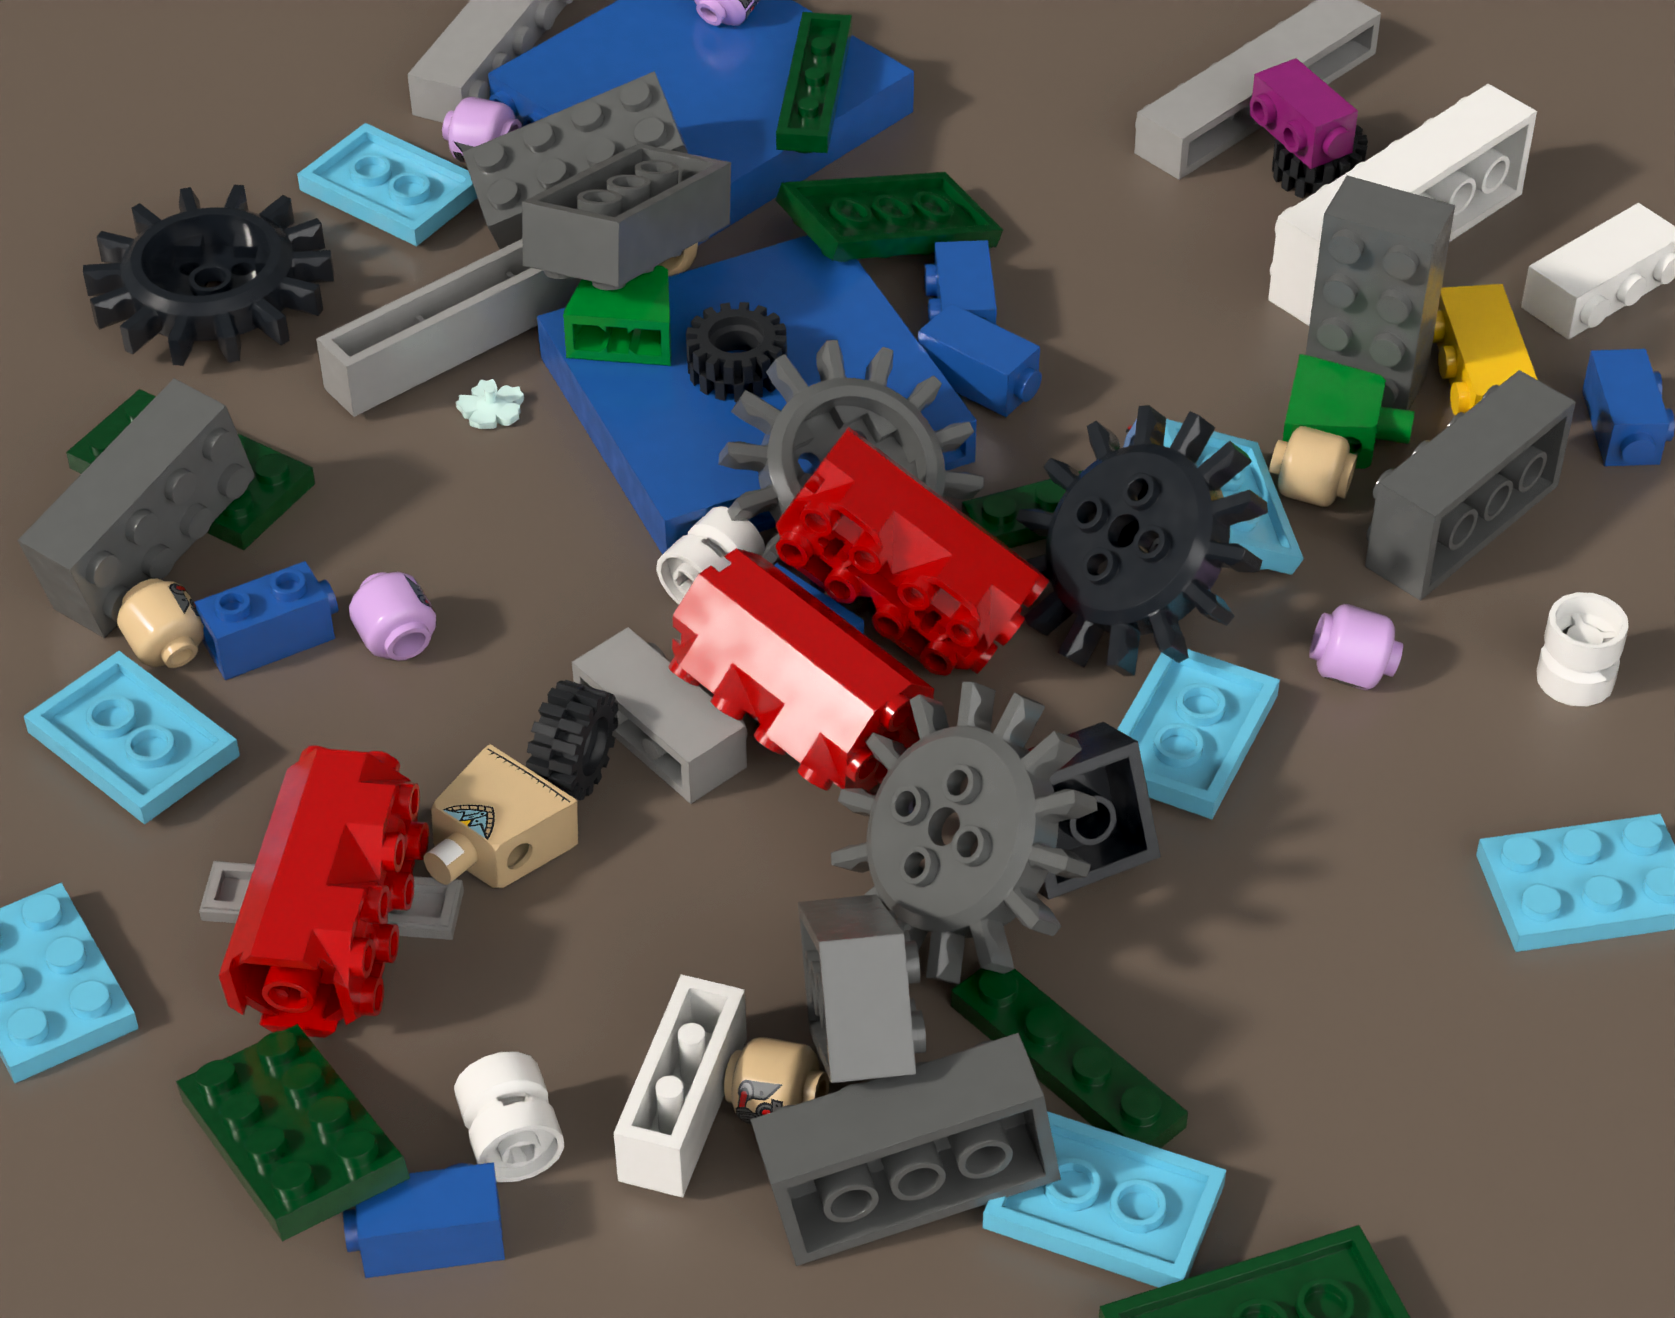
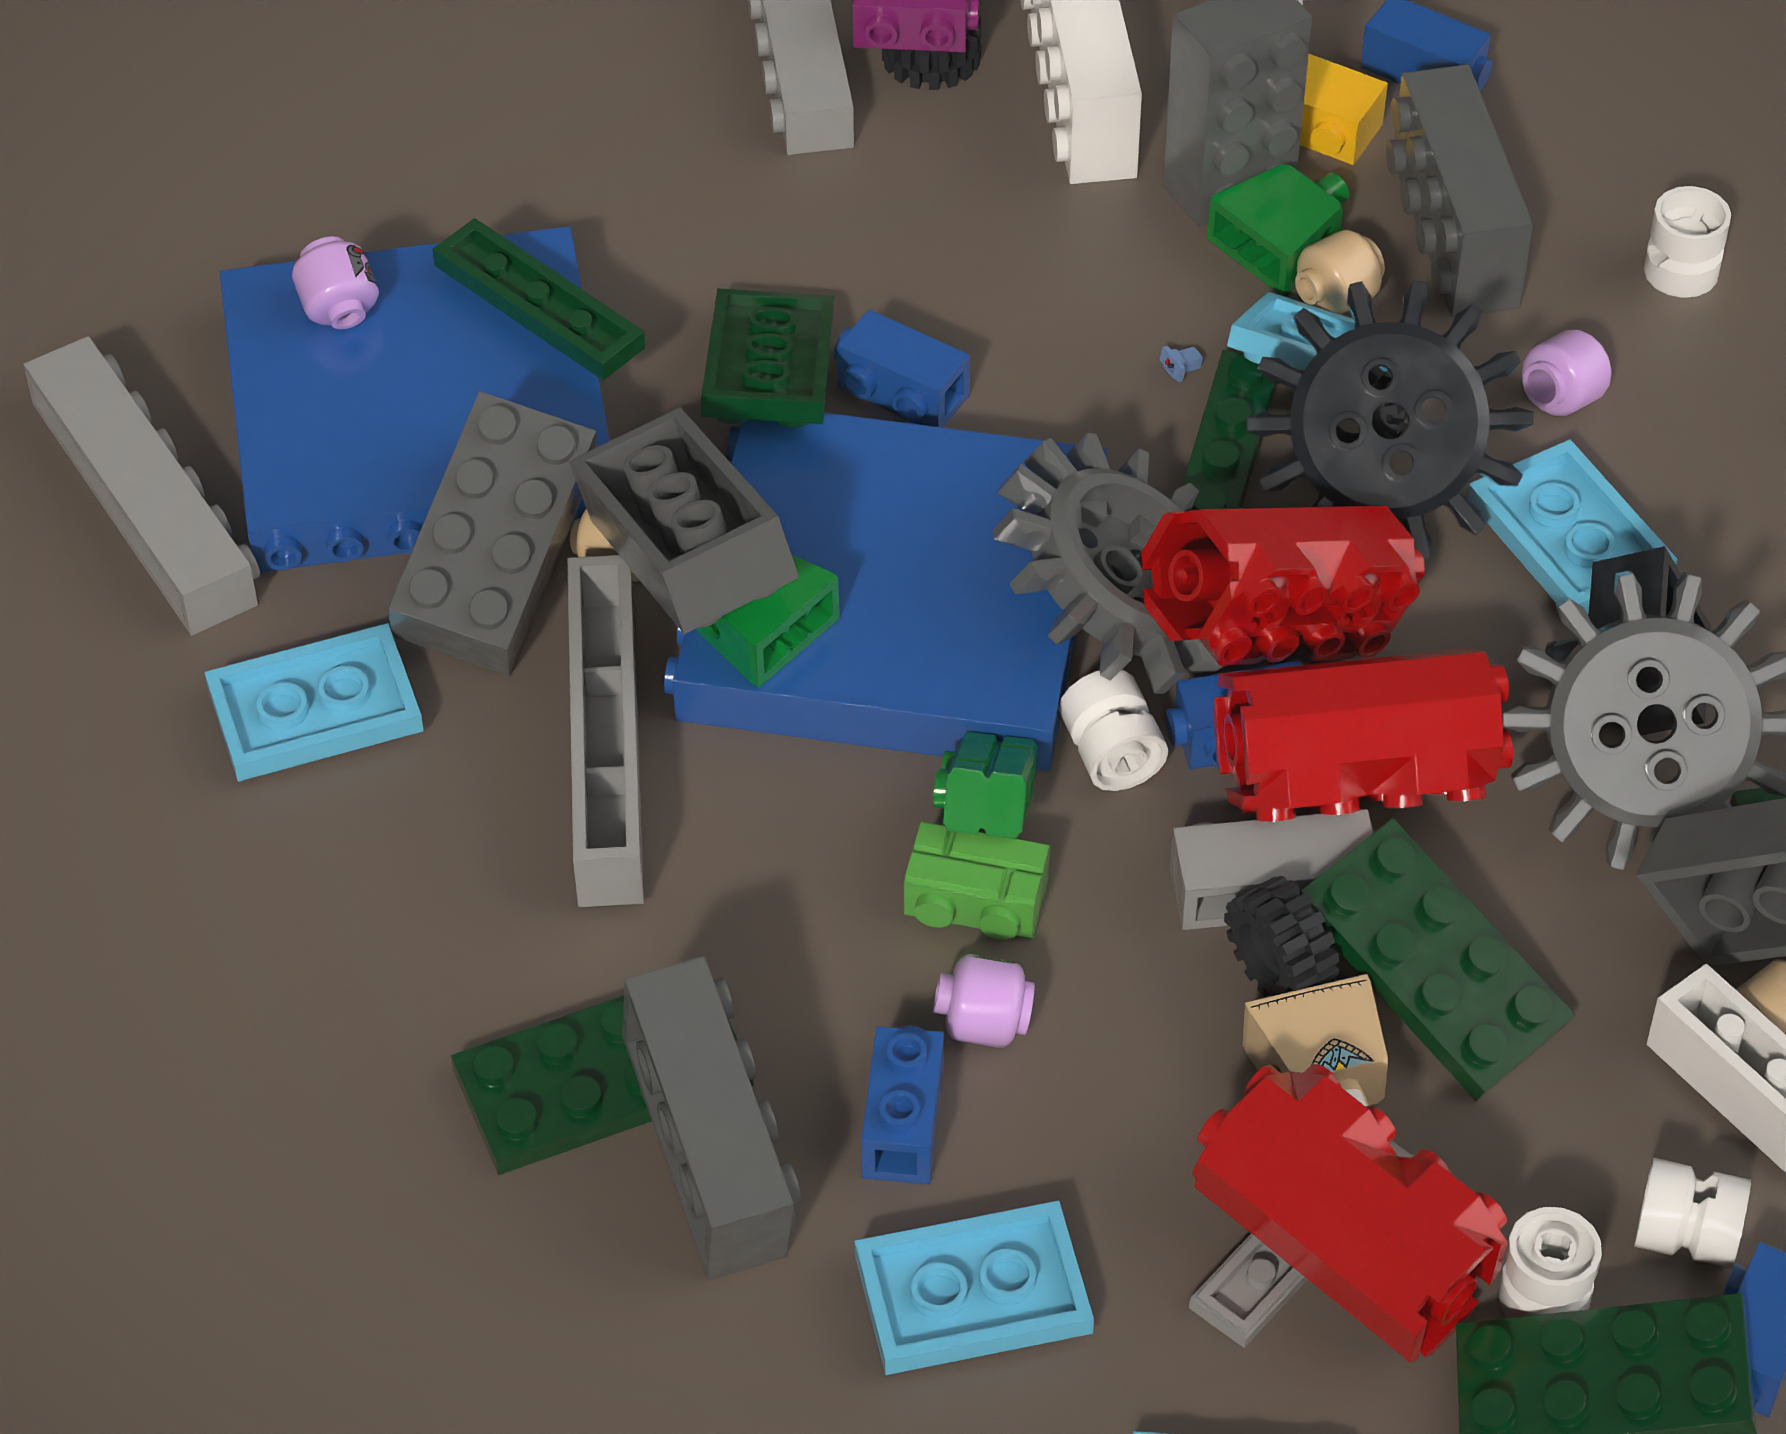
camera: 55 degrees left, 5 degrees up
(161, 622) = (842, 1190): tan head -> none
(165, 271) = (283, 889): black gear -> none
(377, 1048) = (1549, 1264): none -> white wheel
(475, 123) = (317, 588): lavender head -> none
(491, 406) = (719, 790): light aqua plant -> none
(505, 561) = (976, 881): none -> bright green brick
(583, 513) = (987, 784): none -> green brick
(636, 840) = (1436, 959): none -> dark green plate
(731, 330) = (886, 530): black tyre -> none
(982, 359) = (1016, 399): blue brick -> none

